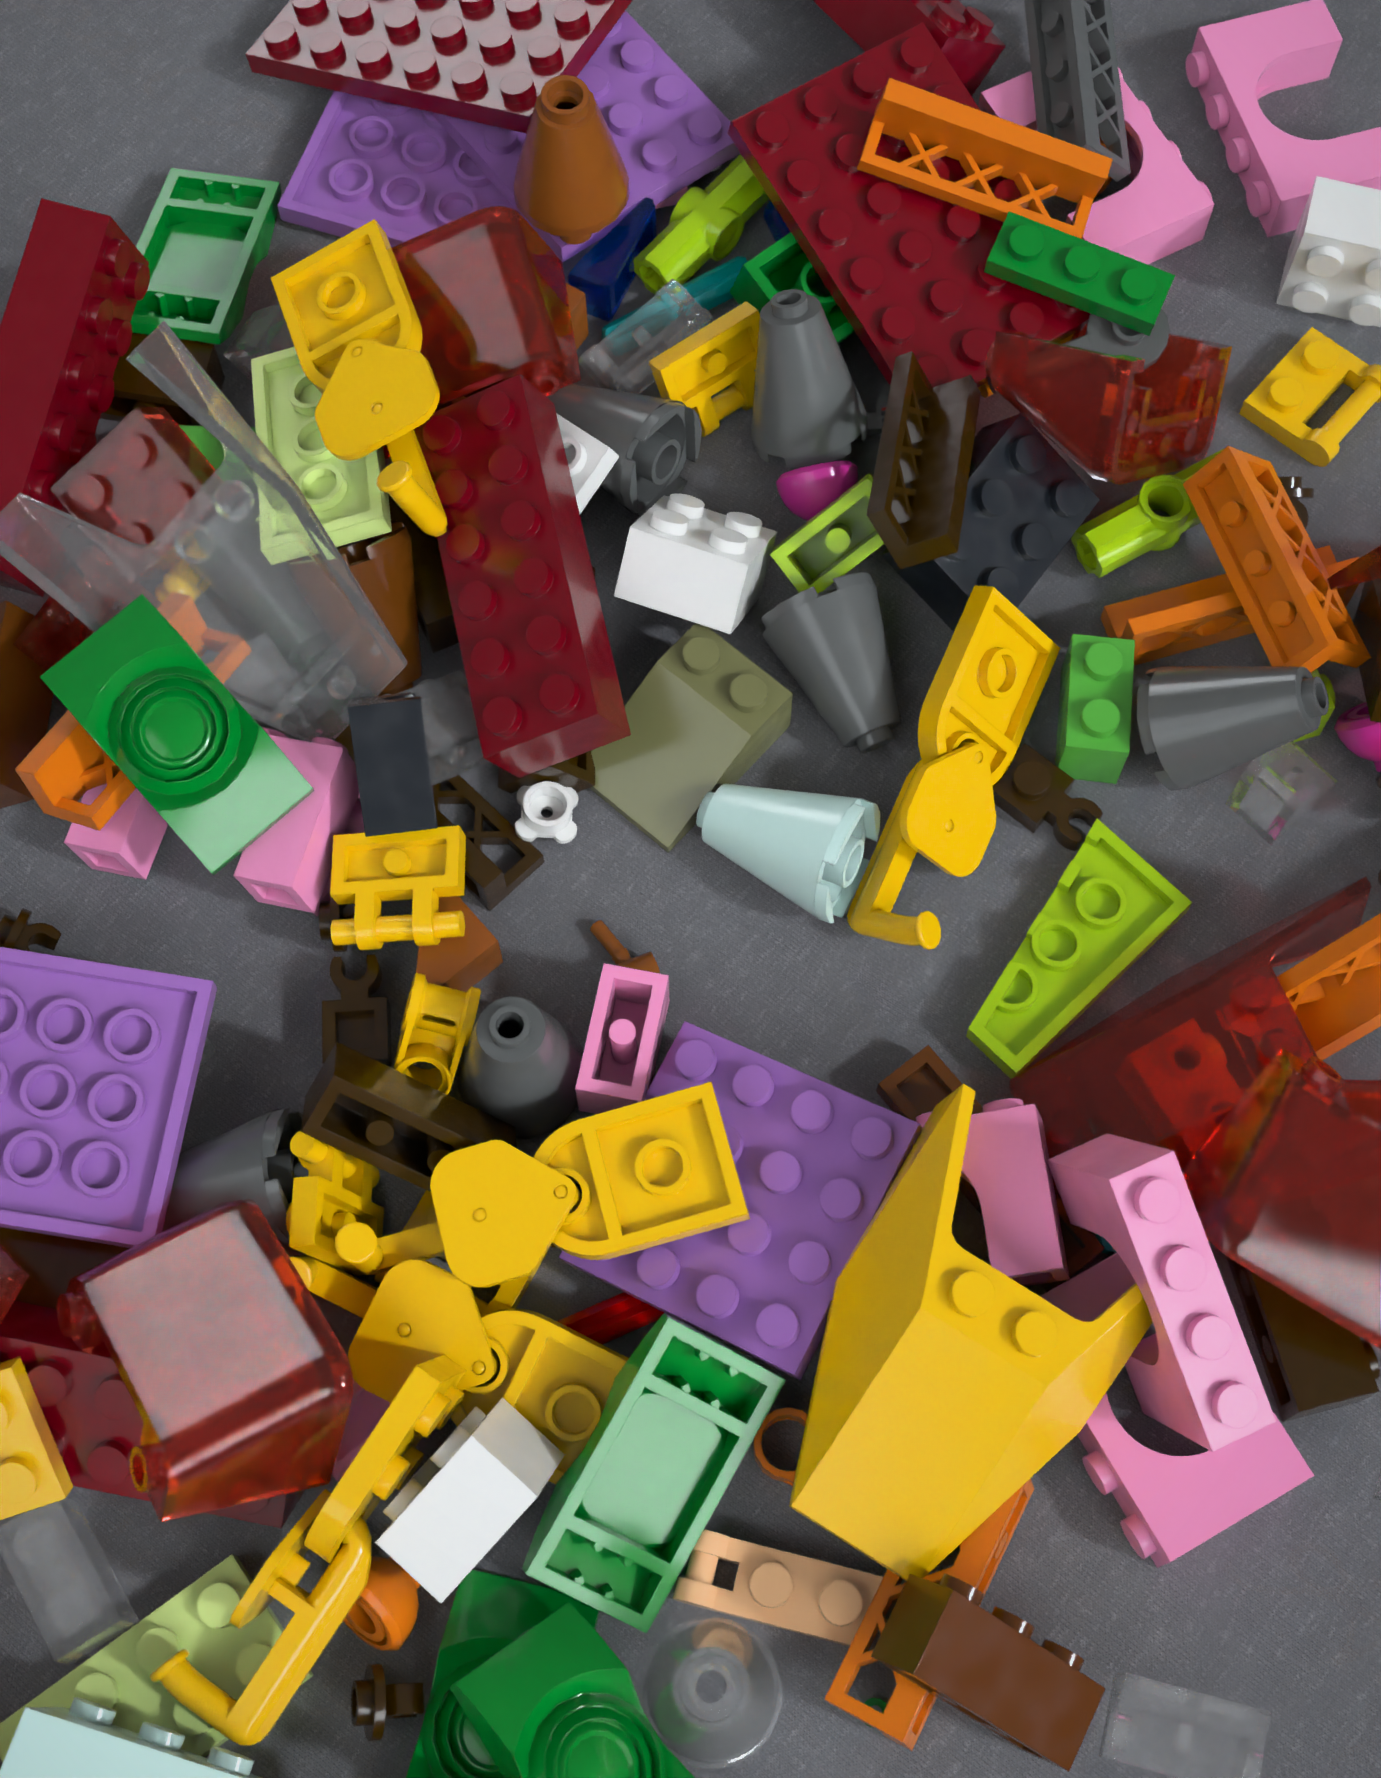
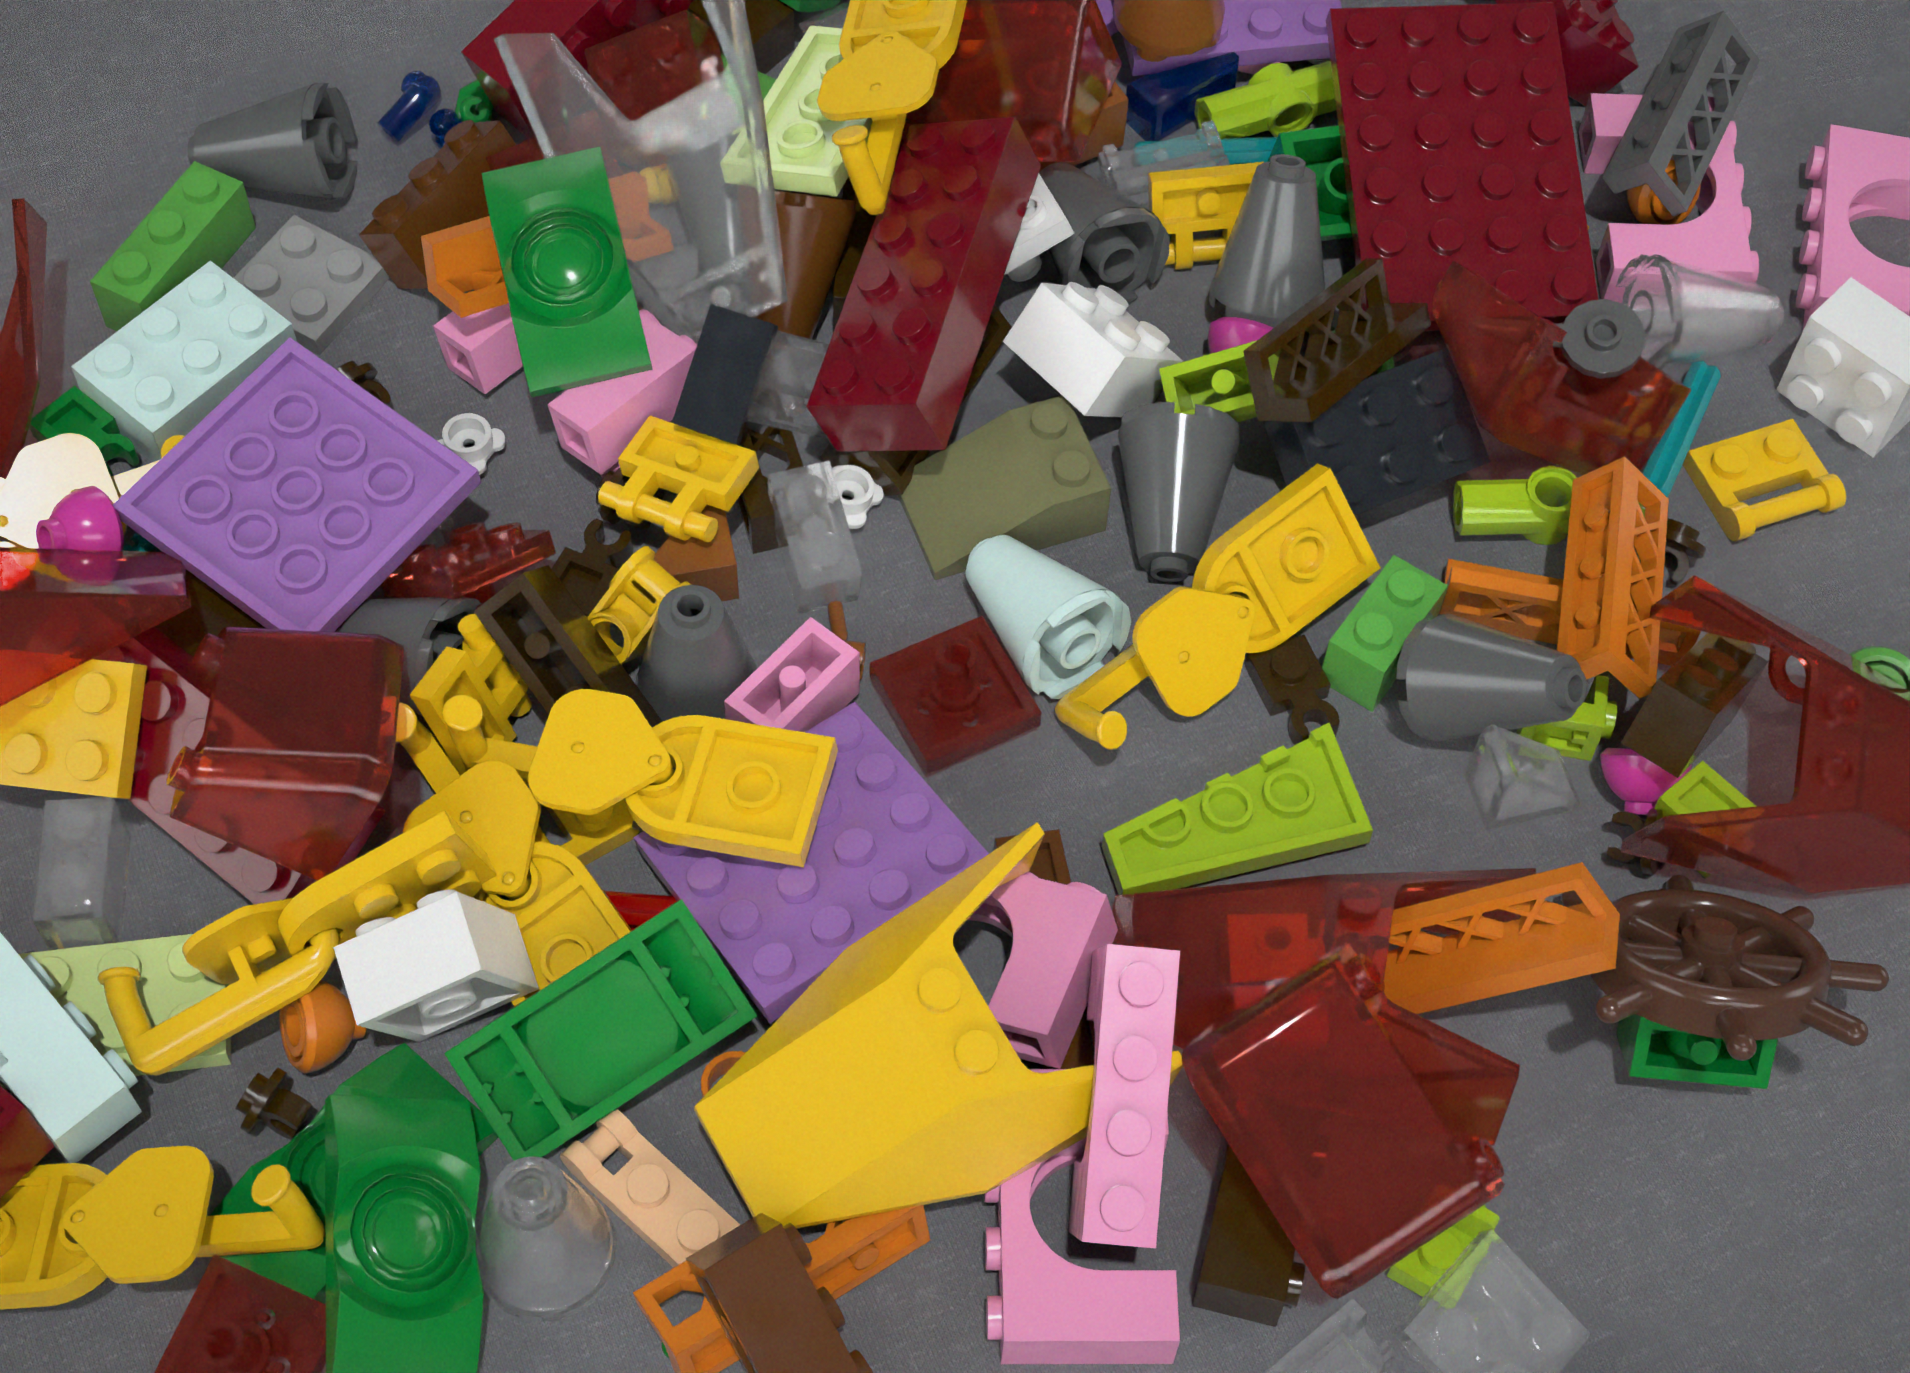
camera: 25 degrees right, 10 degrees down
(158, 922) = (472, 429): none -> white plate
(252, 1070) = (468, 562): none -> clear red plate
(550, 874) = (814, 537): none -> clear brick
(754, 922) = (952, 694): none -> clear red plate
(982, 143) = (1555, 125): orange fence -> none
(1079, 273) = (1579, 265): green plate -> none
(1202, 255) = (1696, 310): none -> clear cone
(1231, 422) = (1675, 443): none -> teal axle

